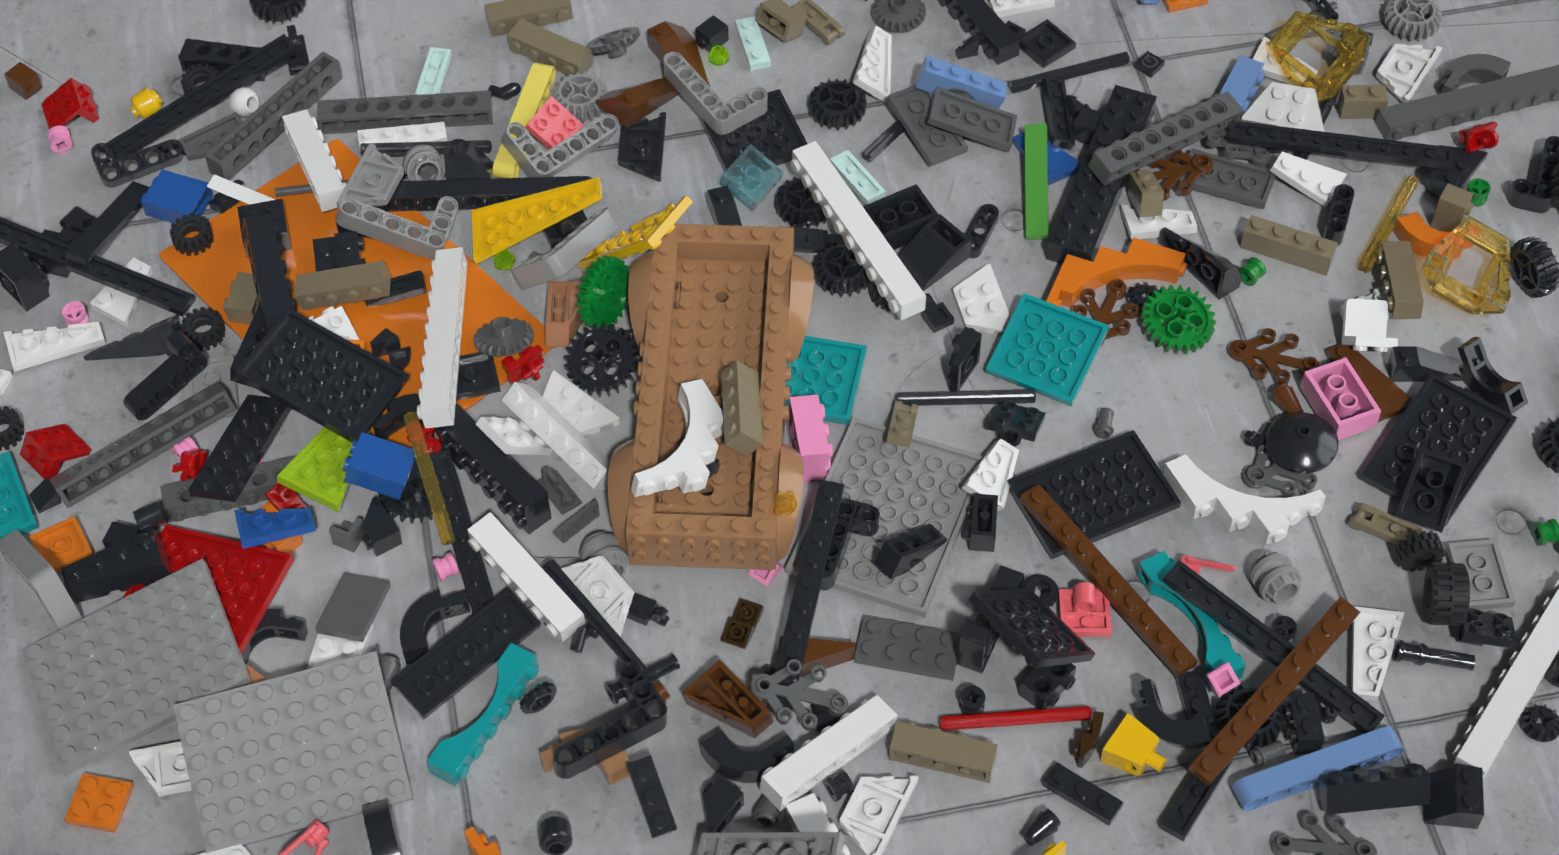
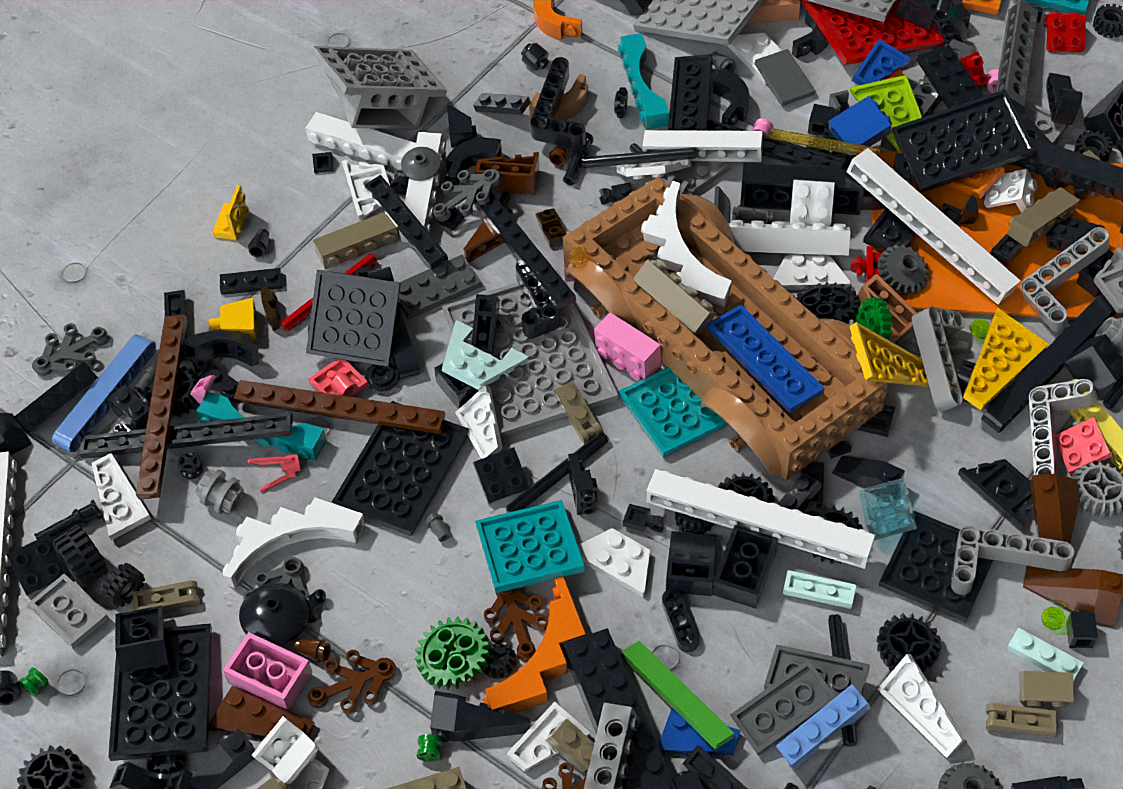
camera: 140 degrees right, 0 degrees up
(720, 318) = (765, 359): none -> blue plate
(811, 769) = (421, 169): none -> dark grey dish
(884, 715) = (406, 222): none -> black tile
(960, 513) = (473, 365): none -> light aqua wing

